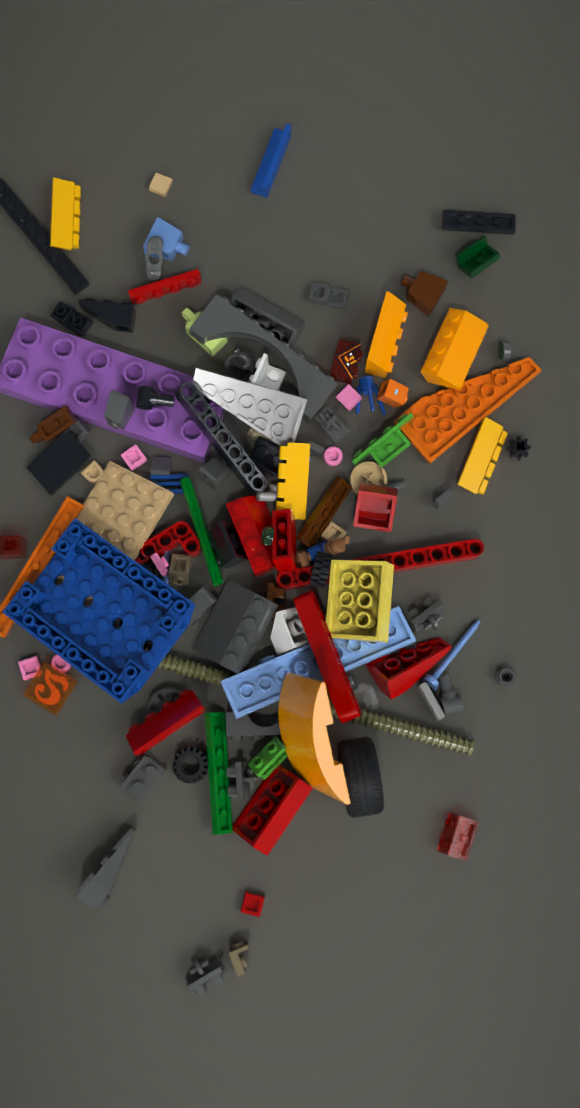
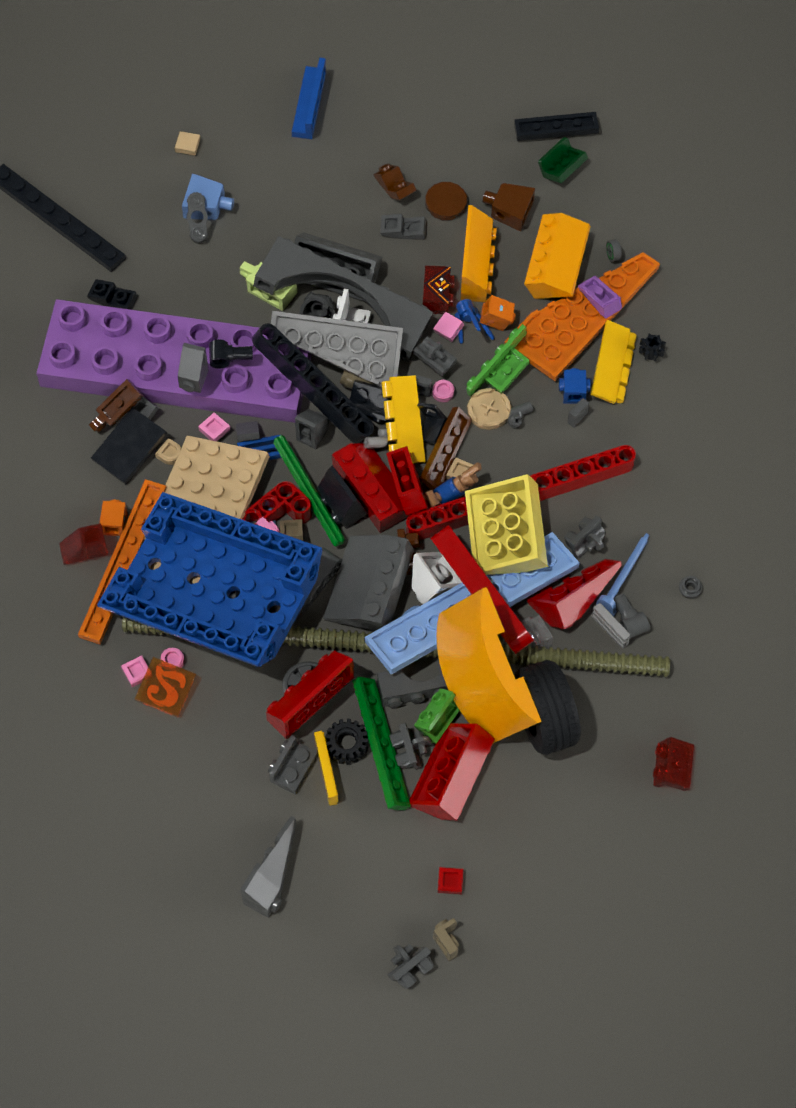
camera: 10 degrees left, 15 degrees down
(34, 526) = (113, 517): none -> orange brick
(64, 206) = (84, 189): yellow windscreen -> none
(114, 315) = (161, 284): black slope -> none
(168, 787) = (326, 768): none -> yellow tile
(170, 285) = (214, 245): red plate -> none
(267, 536) = (387, 477): clear green tile -> none
(317, 488) = (433, 424): none -> black bracket
(320, 570) = (455, 499): black tyre -> none
(328, 252) = (393, 182): none -> reddish brown slope
(370, 277) = (446, 200): none -> reddish brown tile
(375, 507) = (503, 430): red piece -> none
(445, 473) = (574, 385): none -> blue brick
(484, 393) = (601, 296): none -> medium lavender slope

